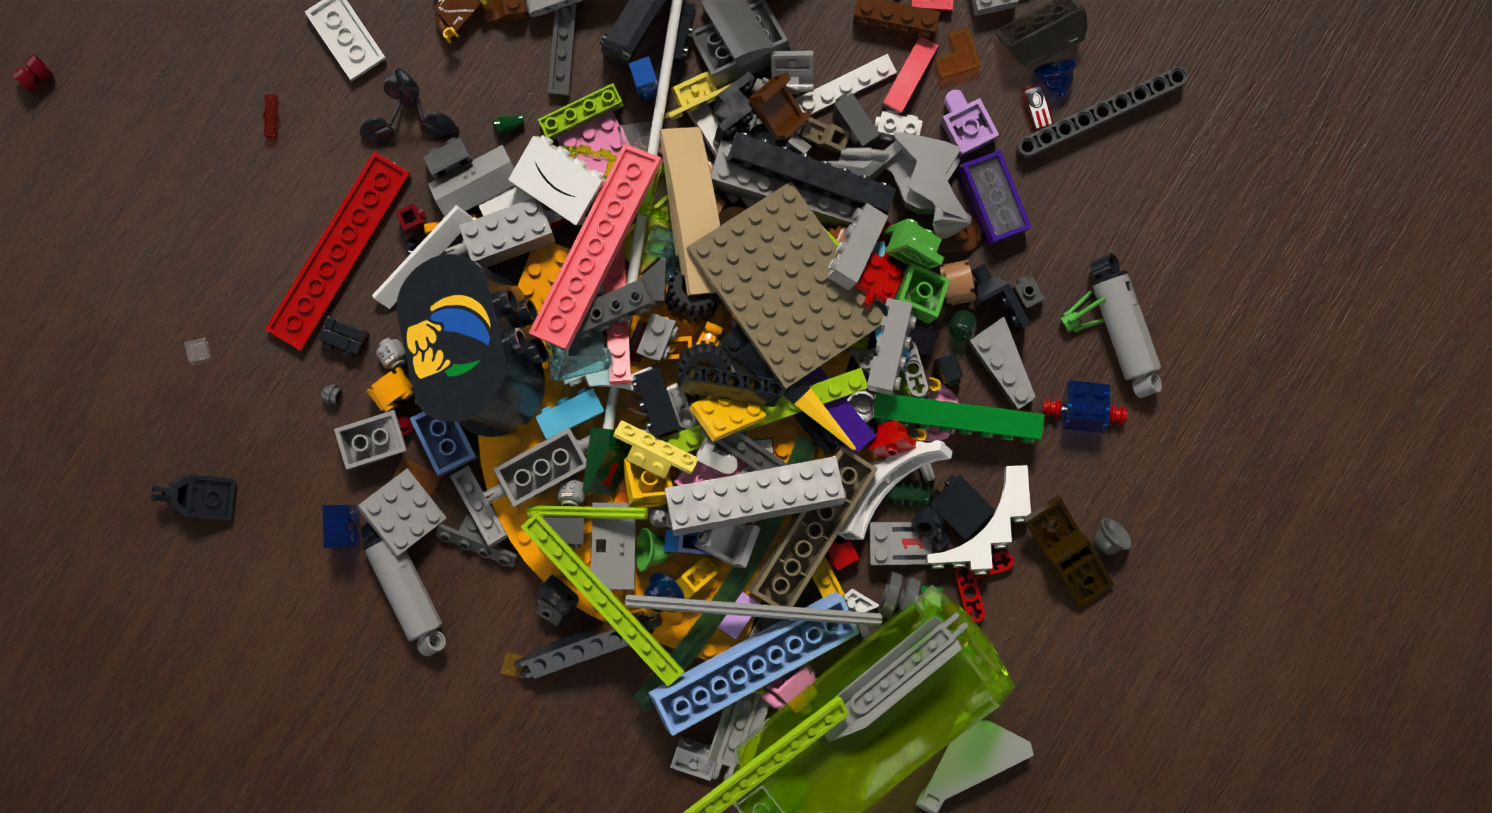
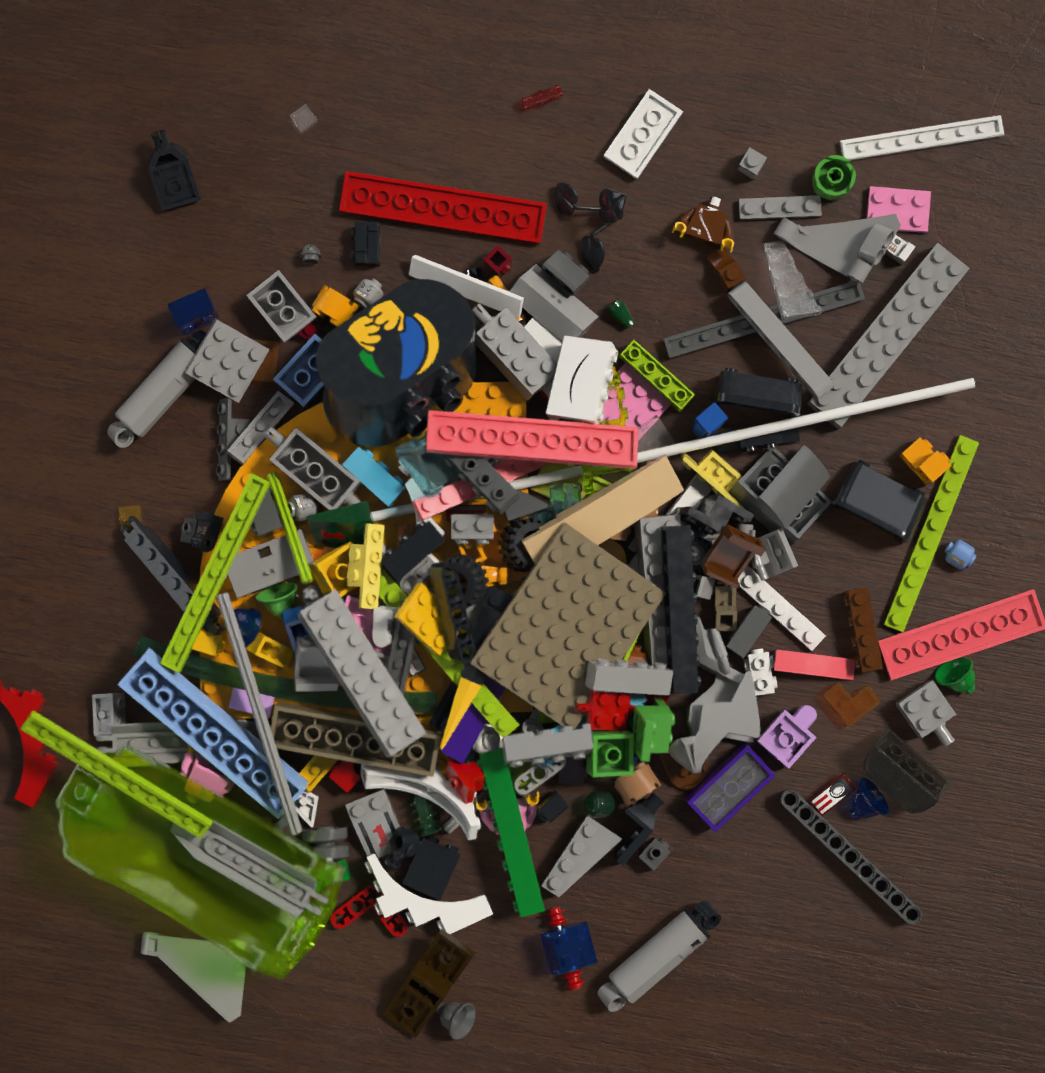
camera: 75 degrees right, 0 degrees up
(667, 633) = (209, 643): none -> yellow brick
(1072, 320) = (645, 904): bright green plant -> none

